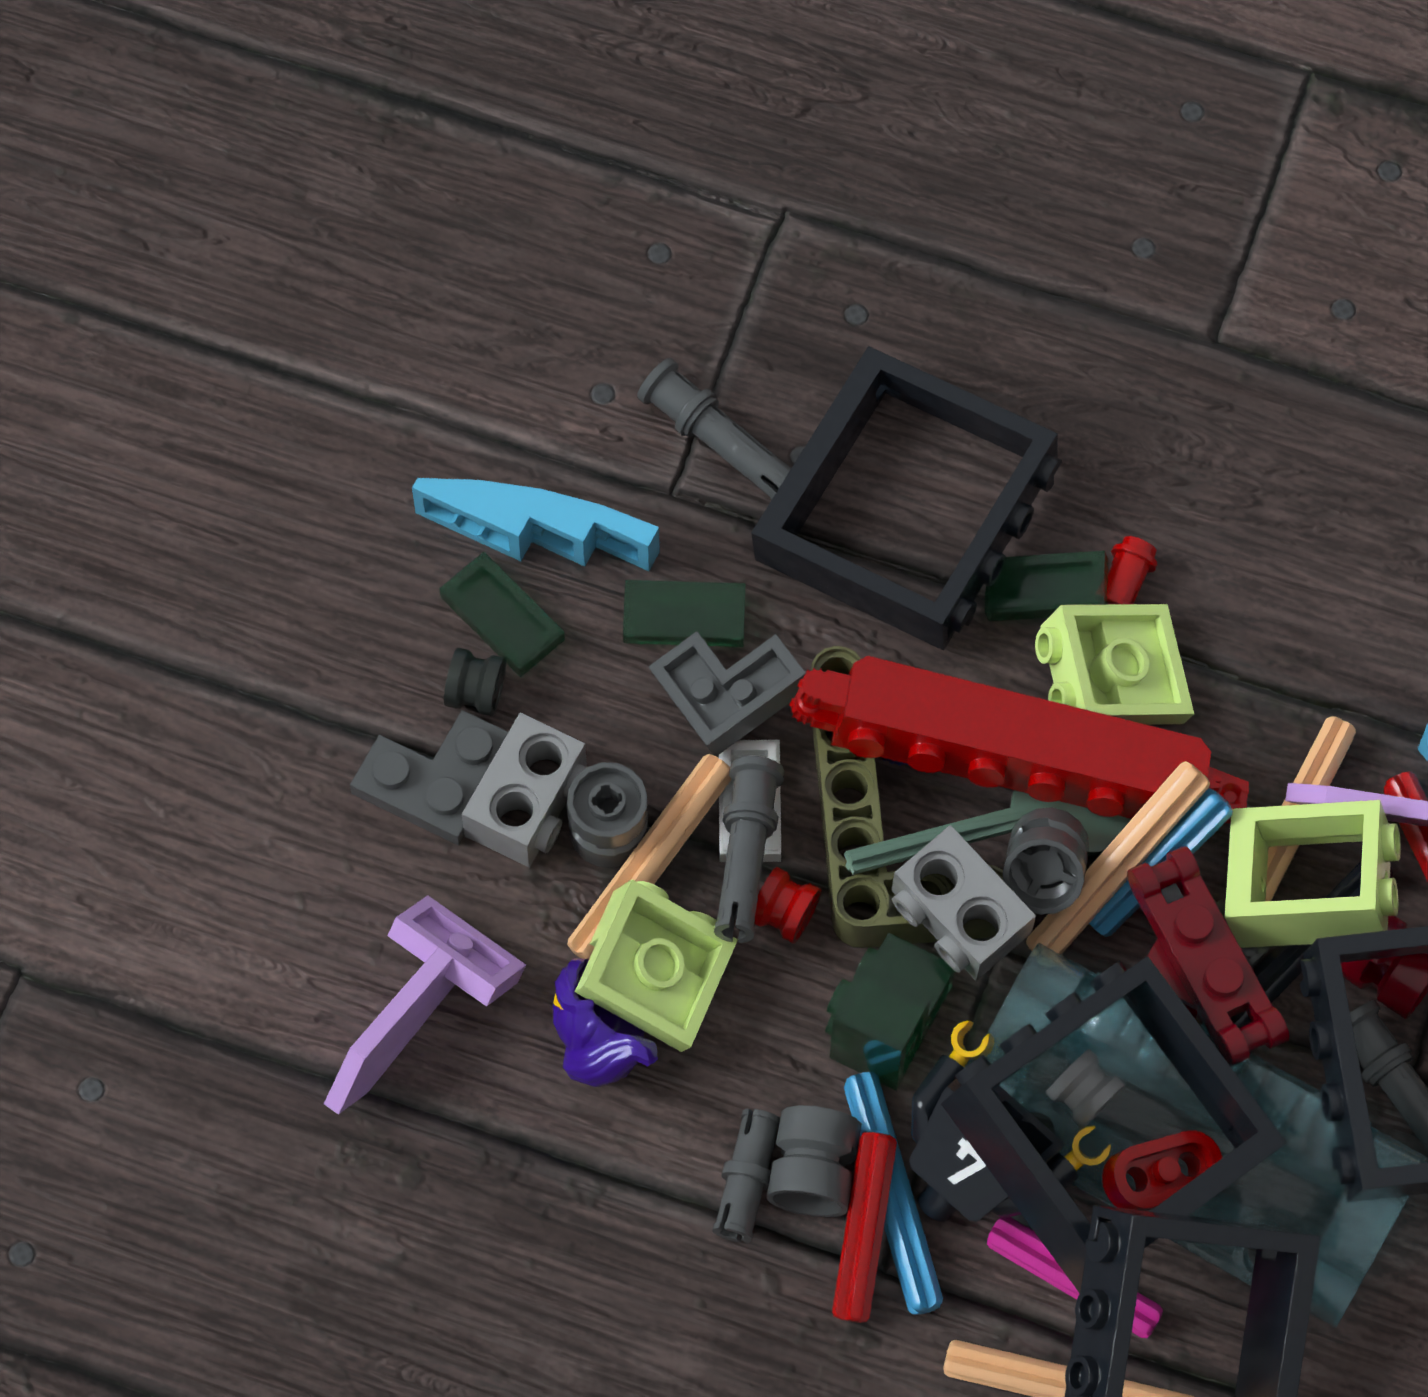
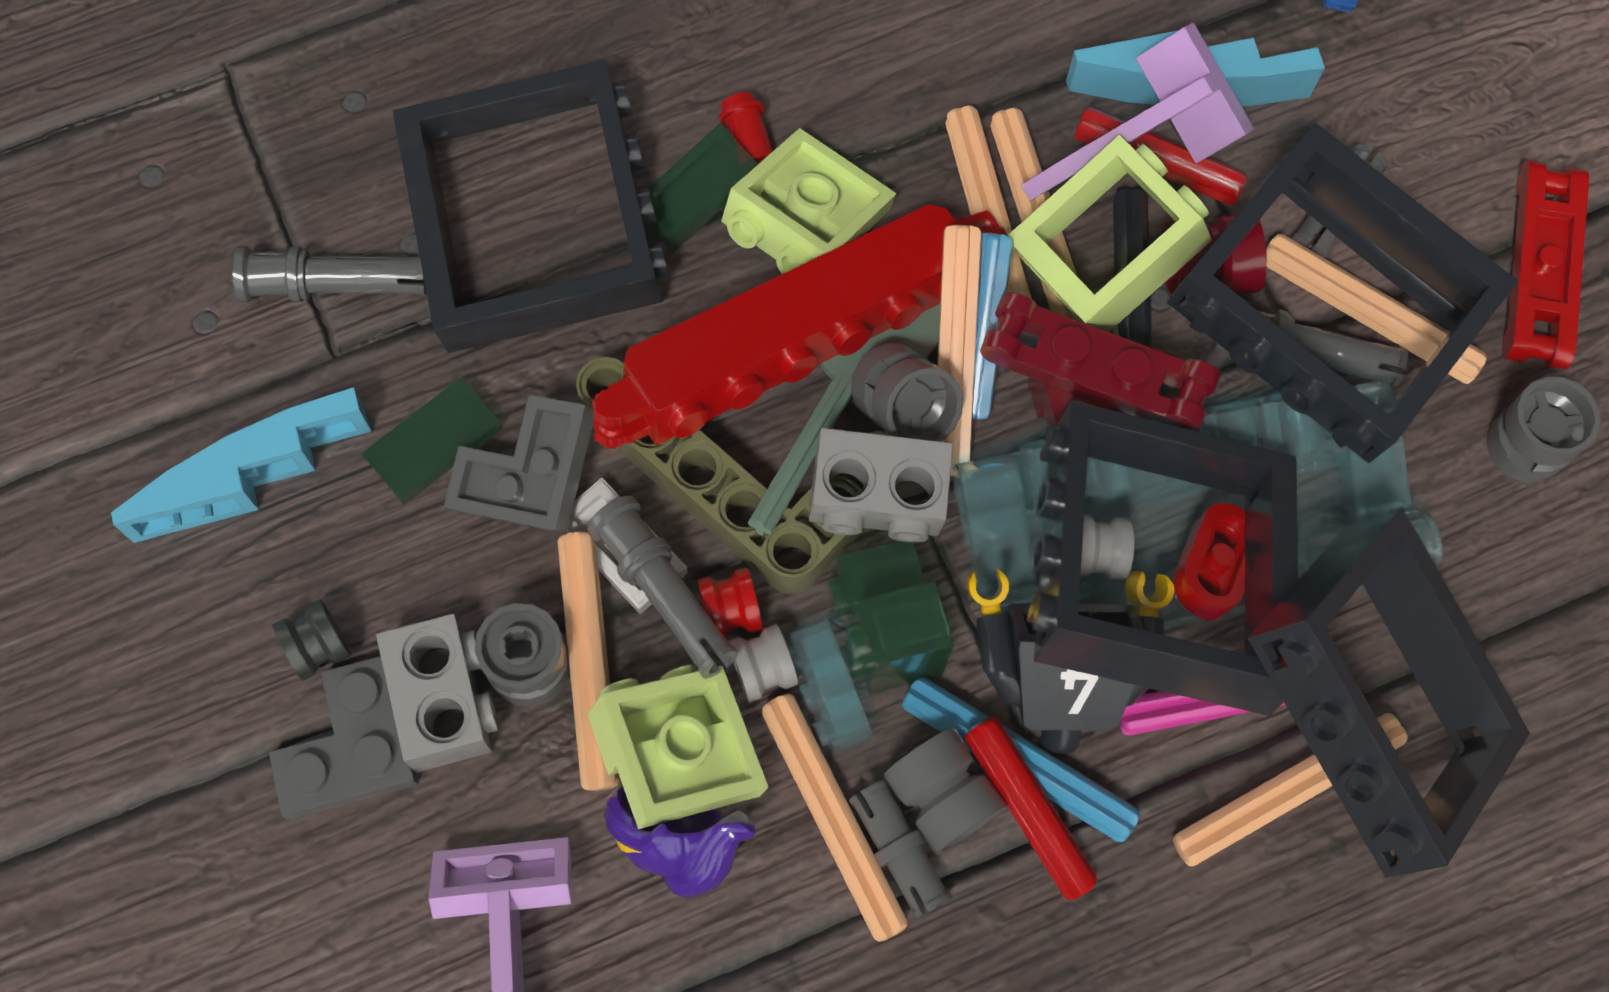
camera: 45 degrees left, 5 degrees up
(502, 614) = (282, 565): clear green tile -> none
(722, 1115) = (834, 818): none -> light nougat axle
(770, 965) = (763, 663): none -> light grey wheel
(800, 1025) = (828, 688): none -> clear light blue piece
(1263, 775) = (981, 180): none -> light nougat axle

